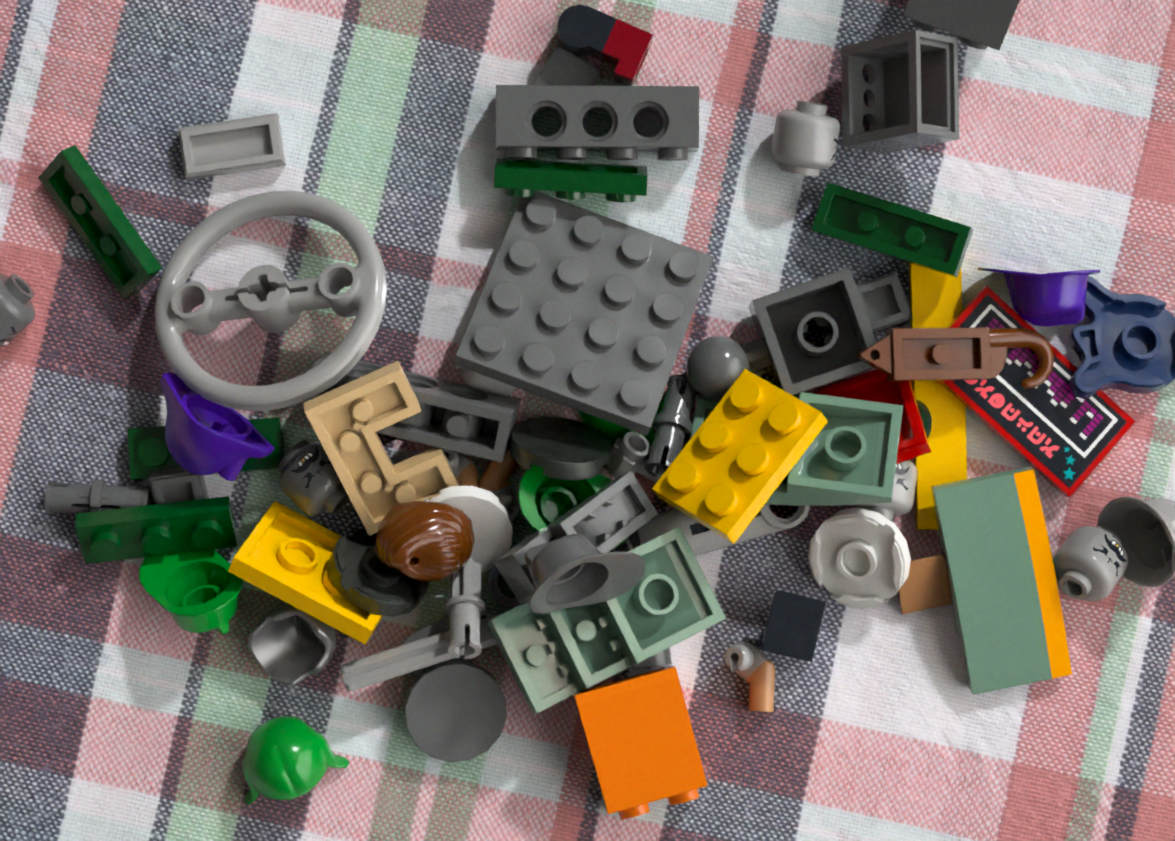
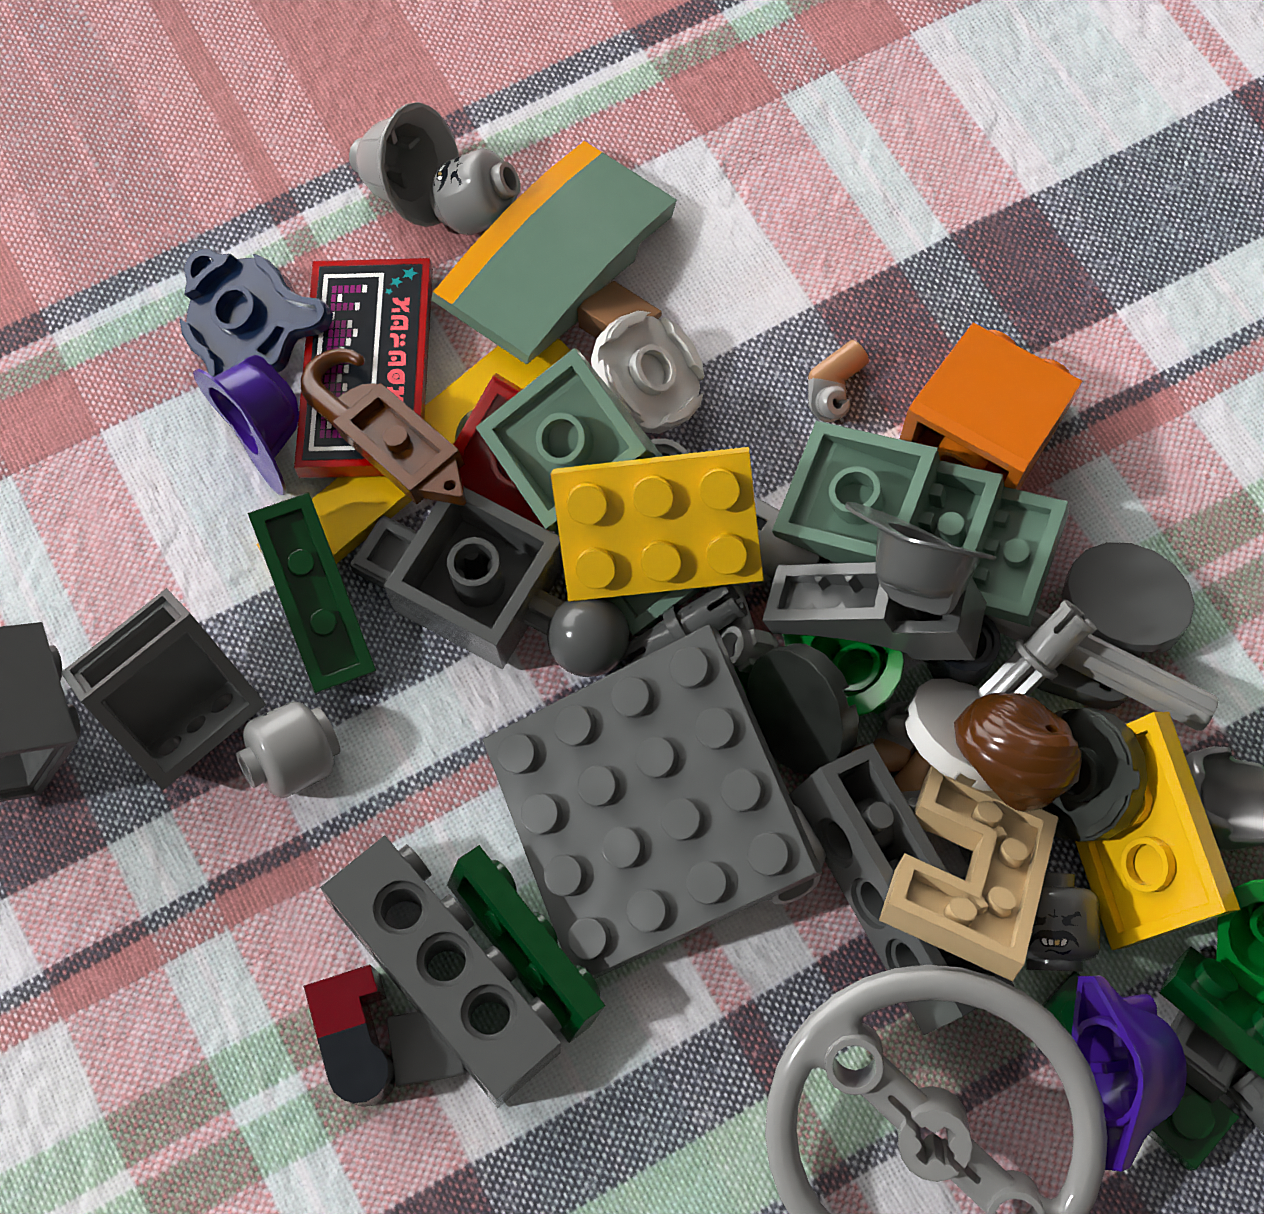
camera: 125 degrees left, 15 degrees down
(793, 626) = (764, 373): black panel -> none

